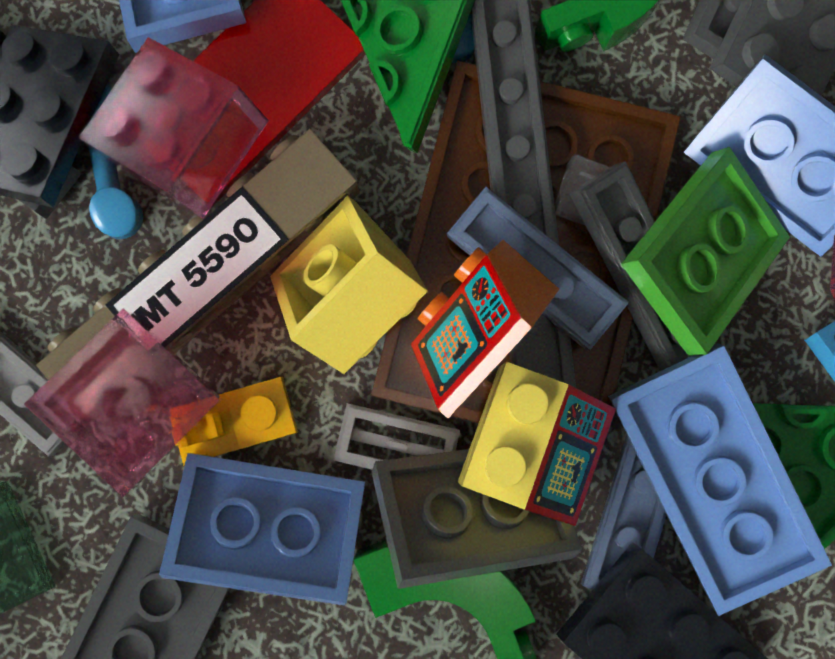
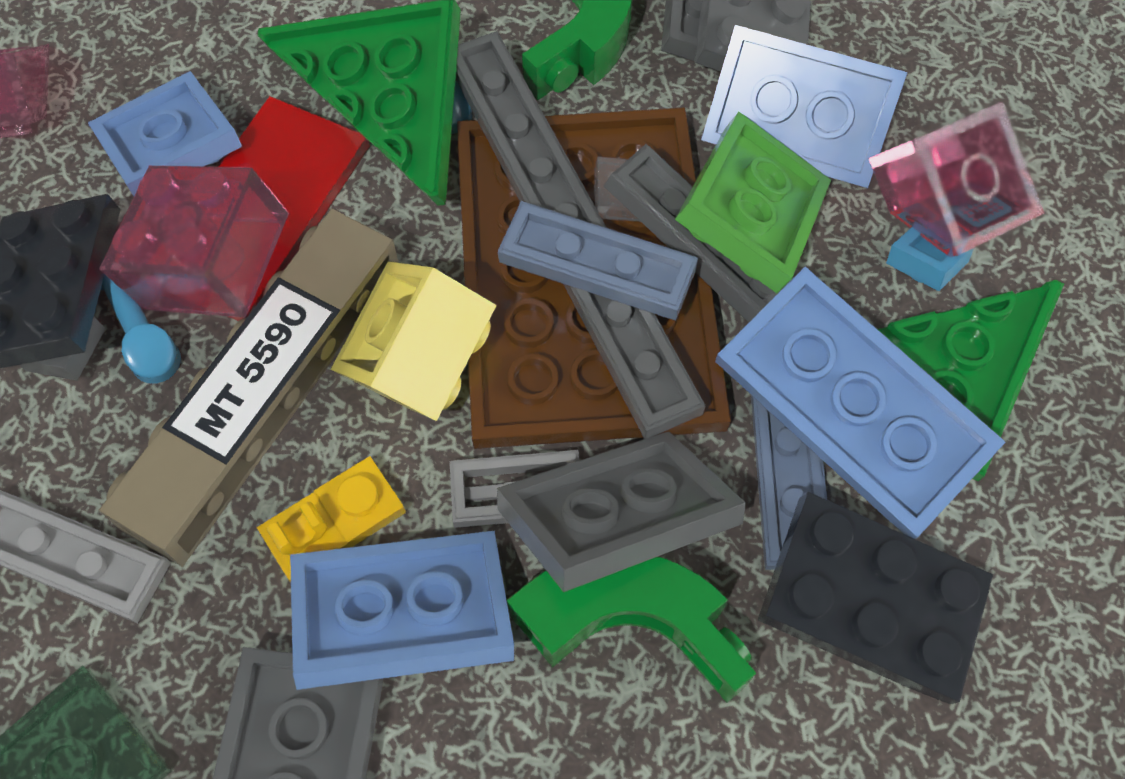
camera: 15 degrees left, 20 degrees down
(123, 402) = (210, 492): clear pink brick -> none
(479, 322) = (556, 309): slope -> none
(537, 444) = (657, 409): light yellow slope -> none

